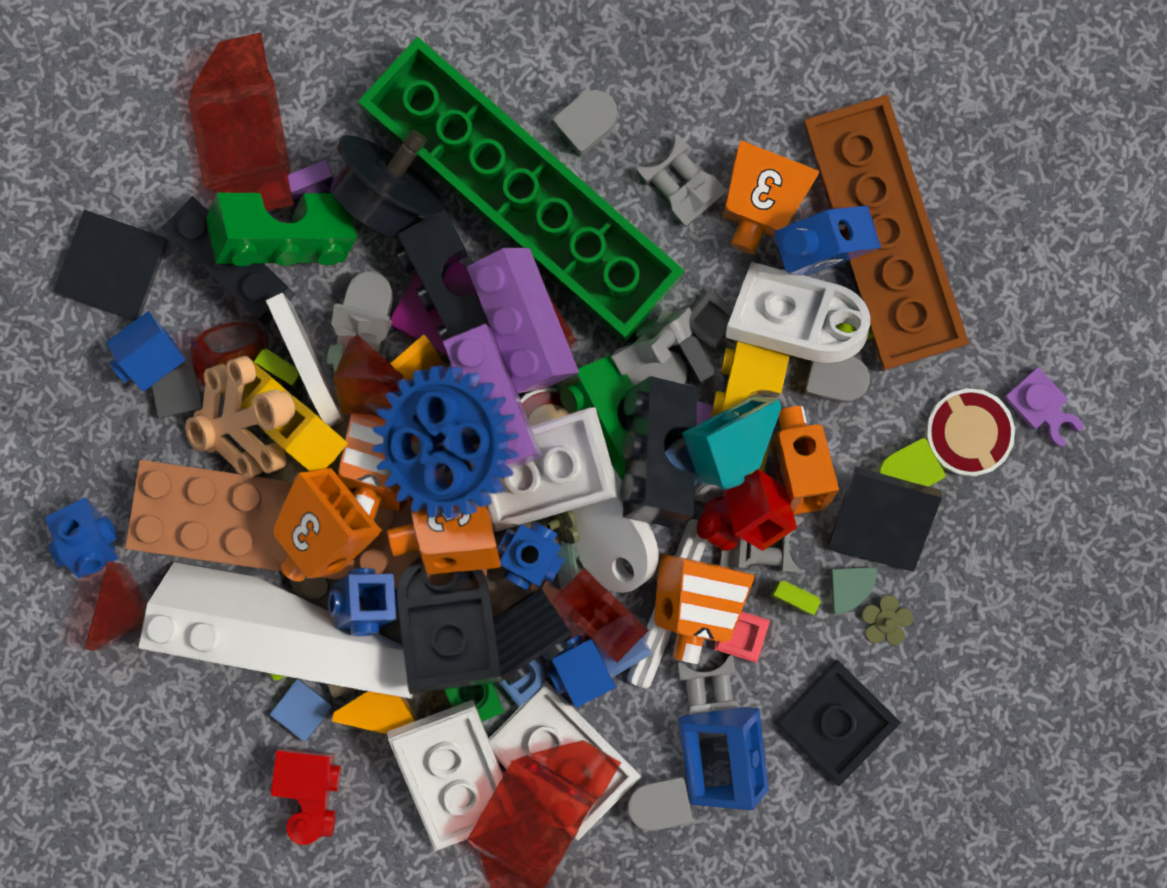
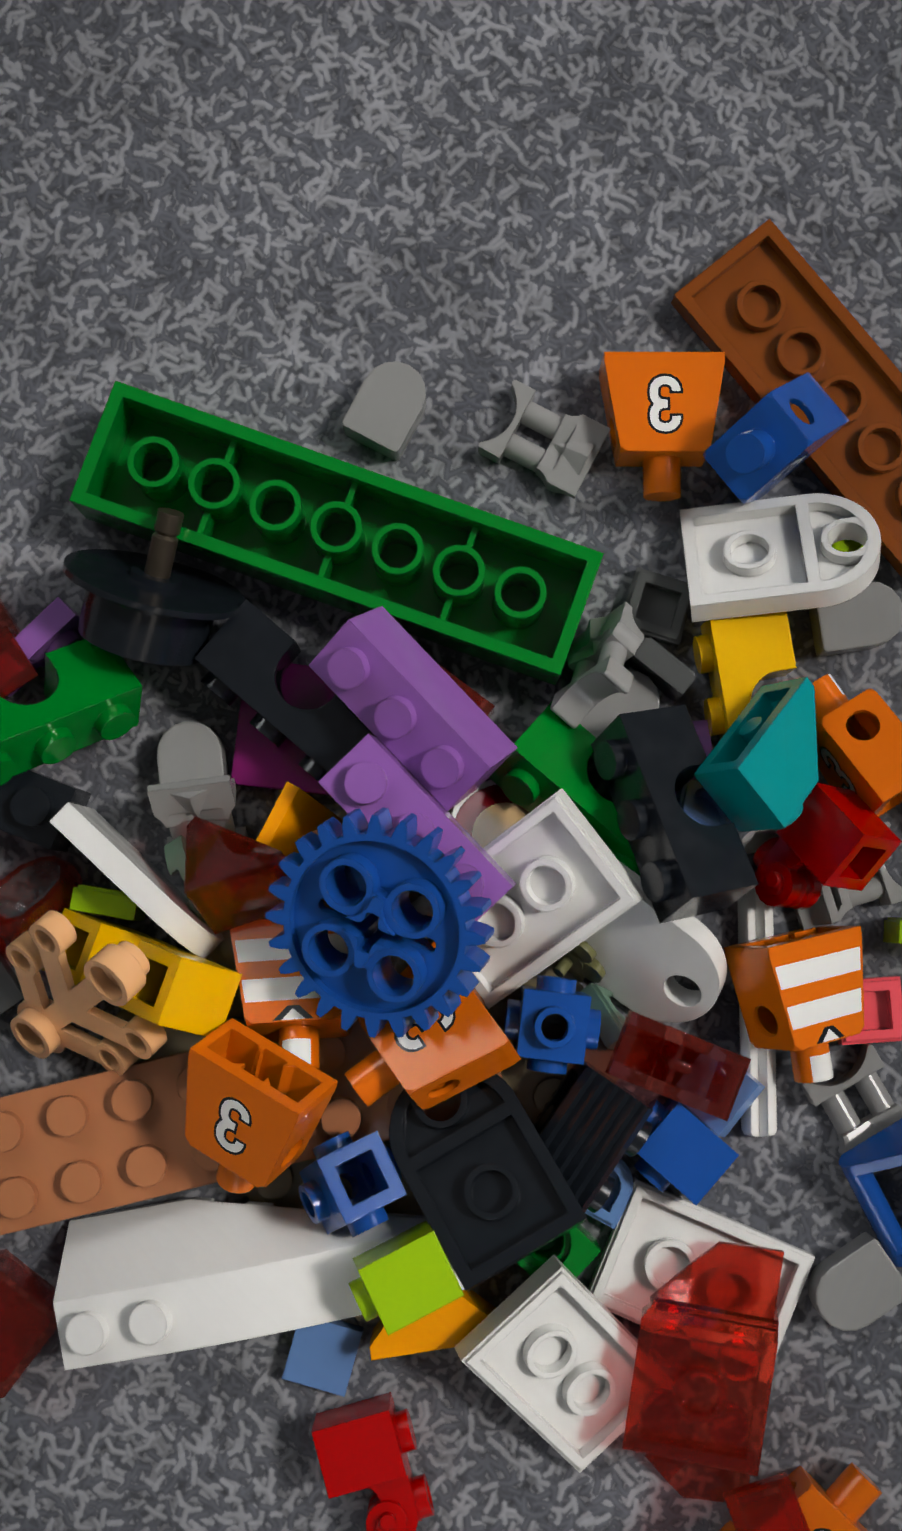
camera: 20 degrees left, 0 degrees up
(373, 670) = (404, 1278): none -> lime brick

